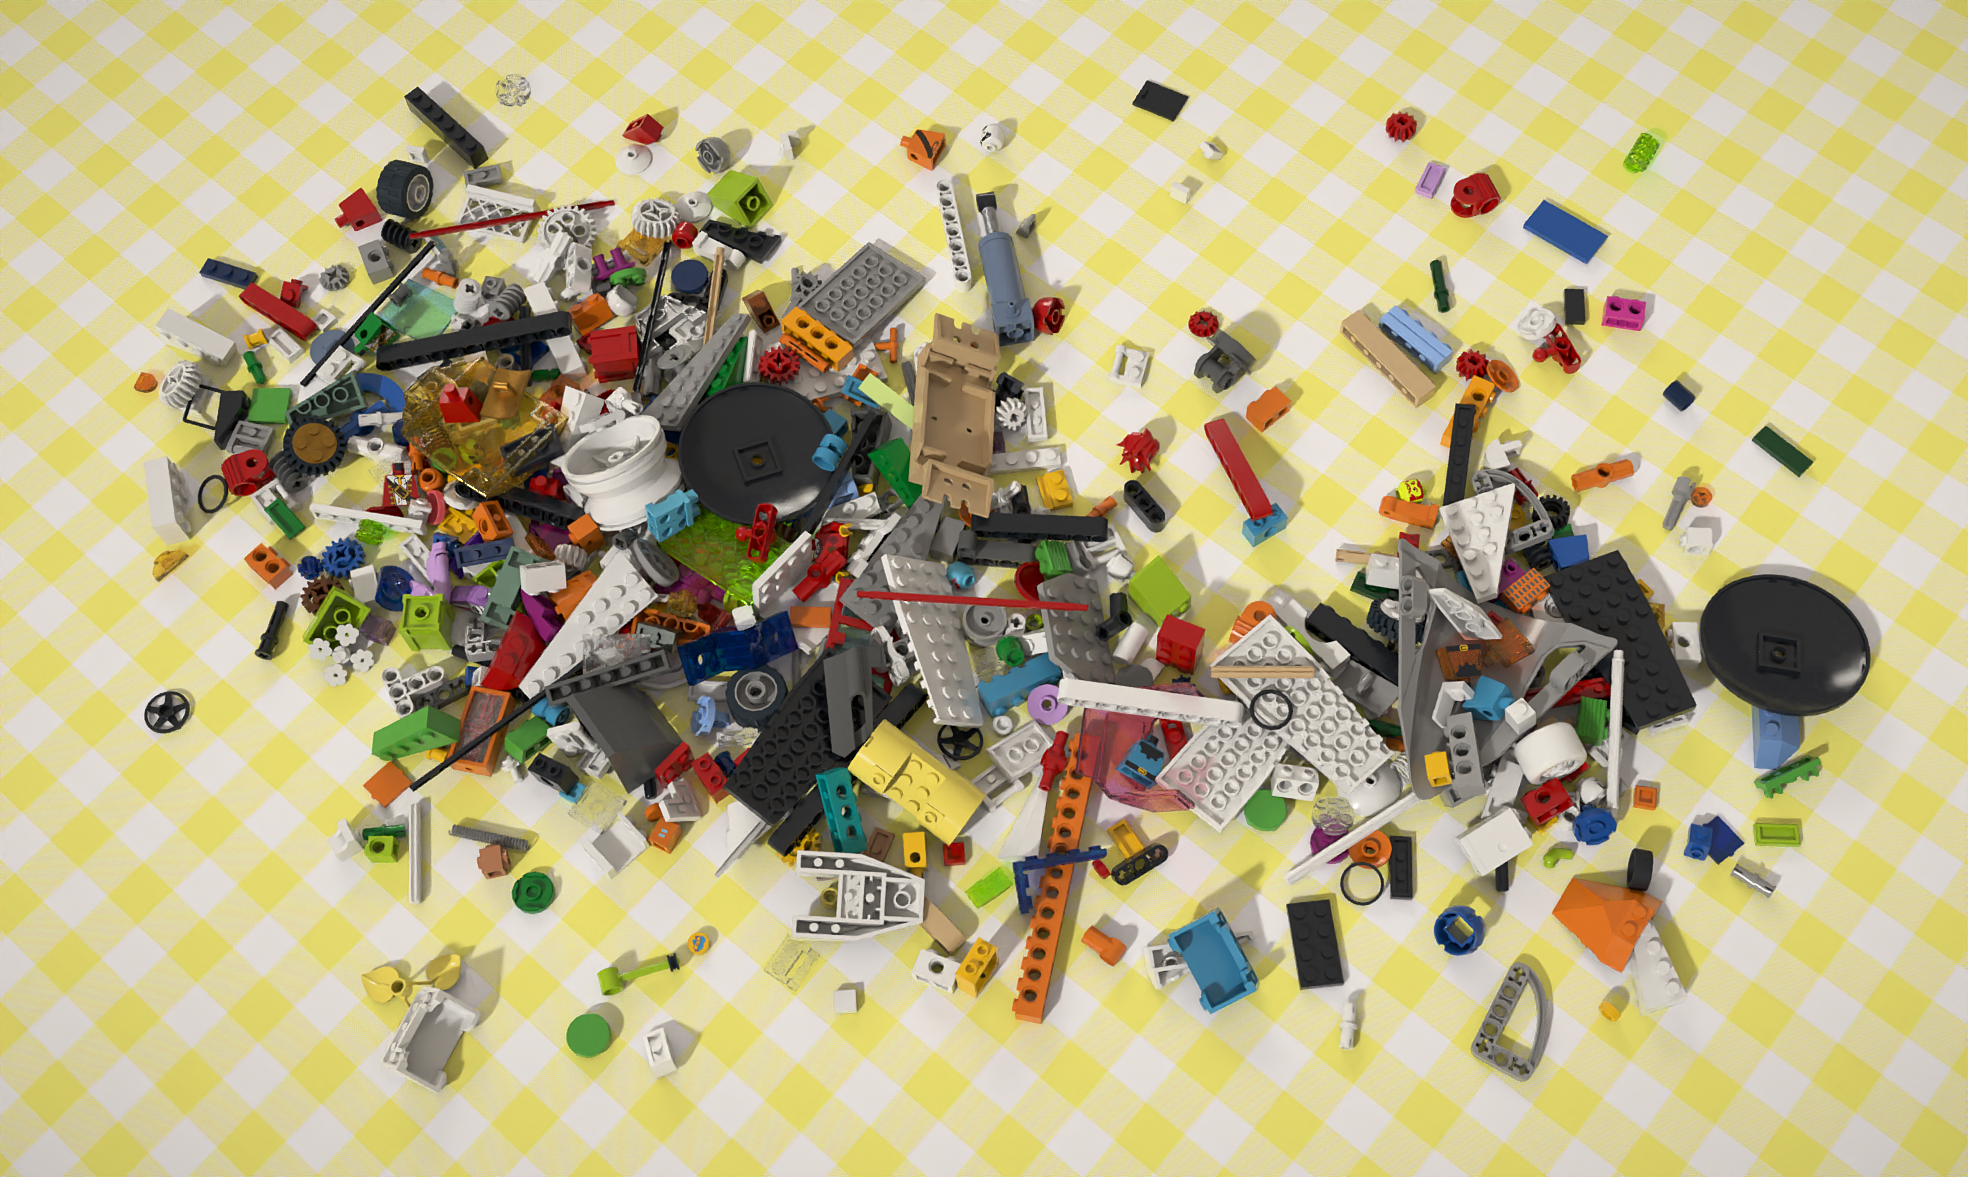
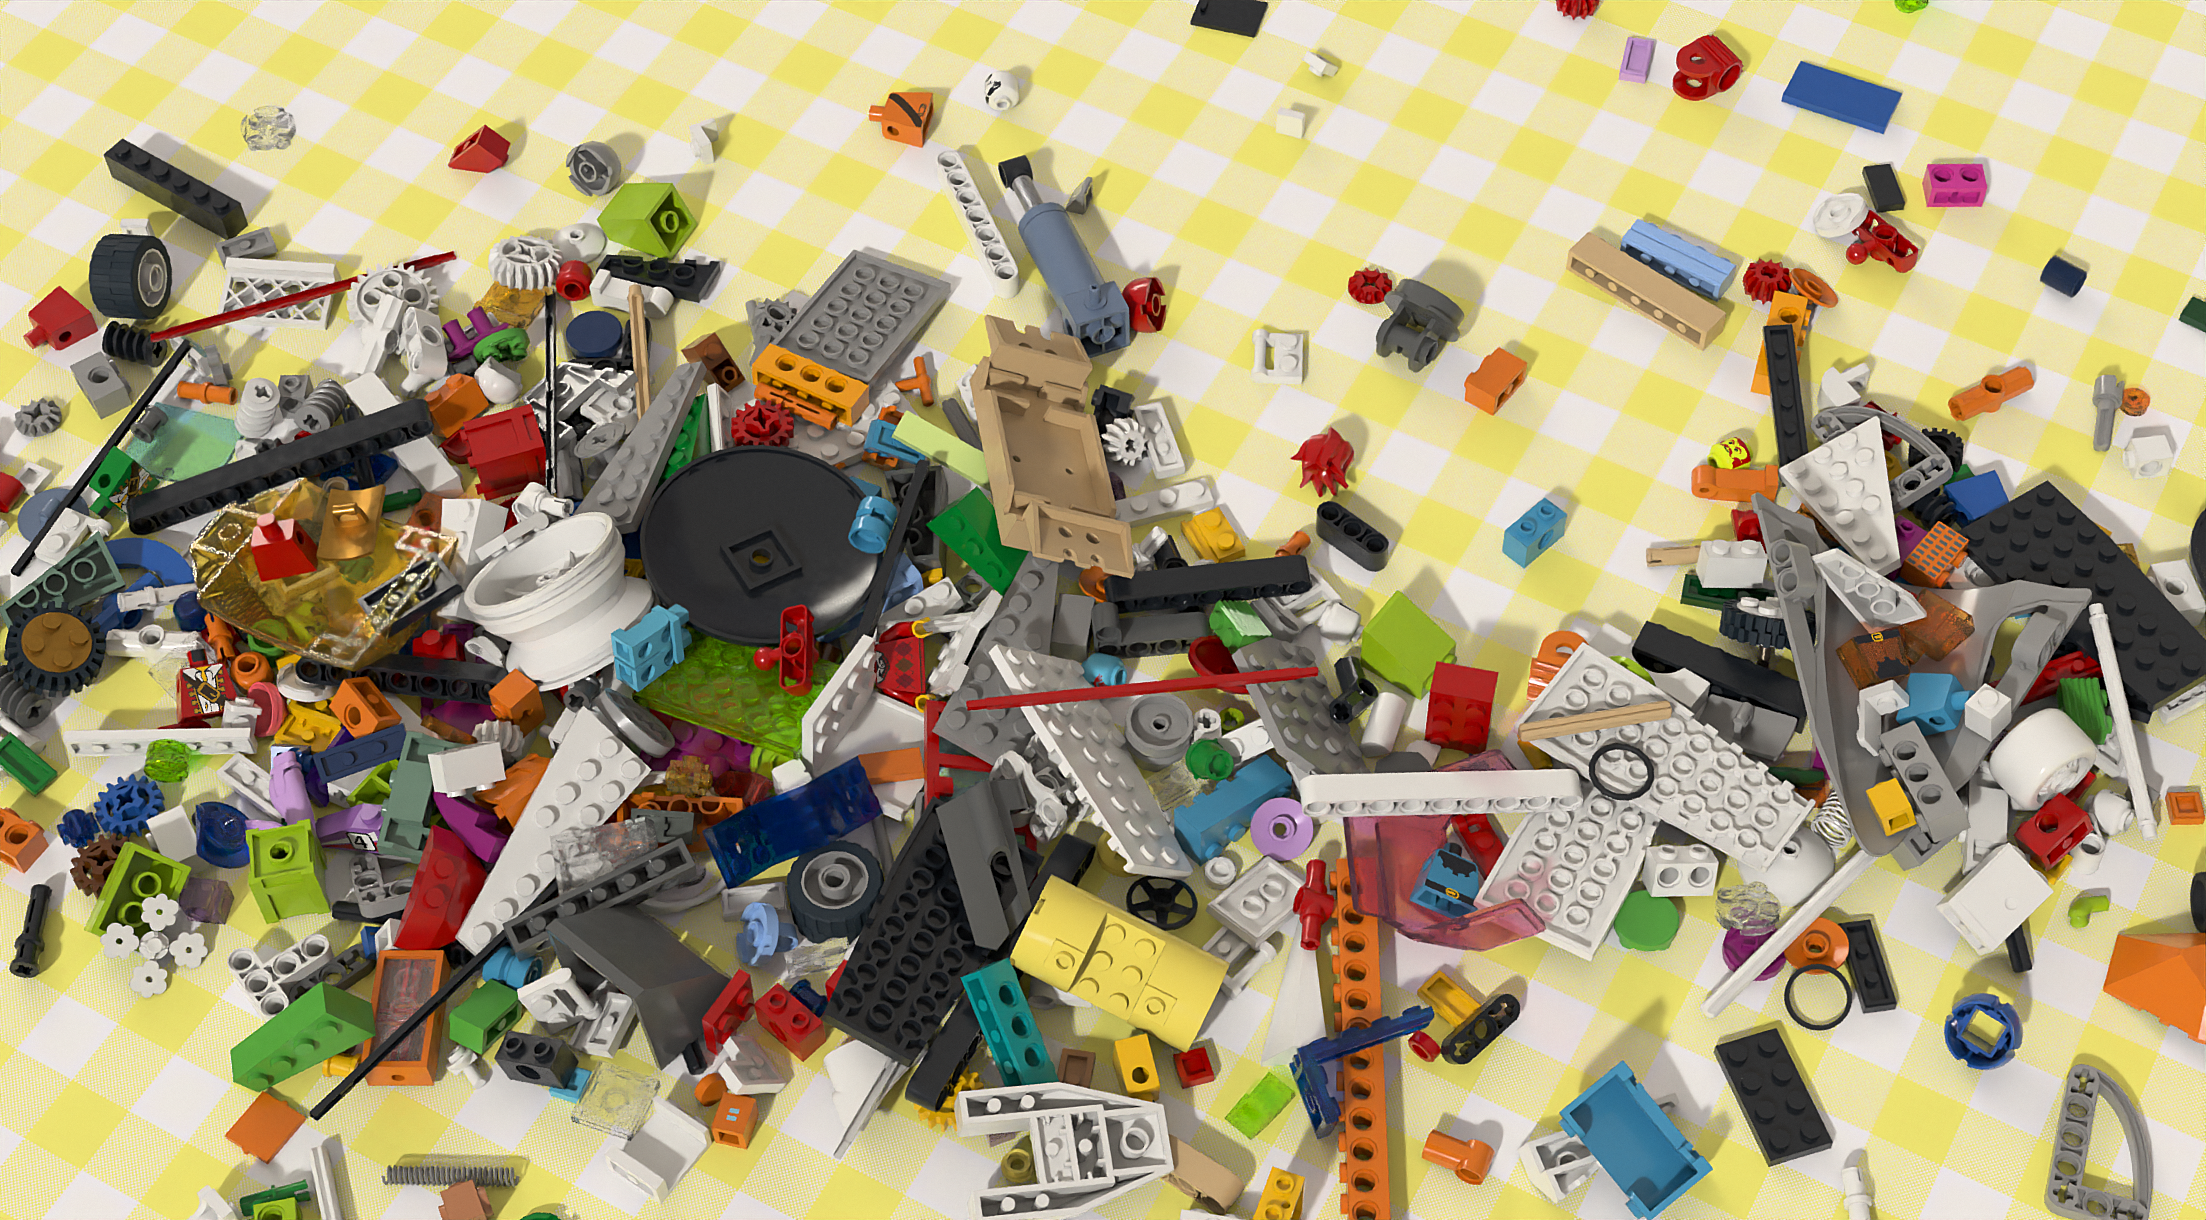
camera: 15 degrees left, 10 degrees down
(633, 165) = (471, 195): white dish -> none
(819, 576) = (892, 704): red piece -> none
(1238, 469) = (1478, 463): red beam -> none
(1441, 293) = (1694, 196): dark green pin -> none
(1593, 825) = (2128, 854): blue tile -> none

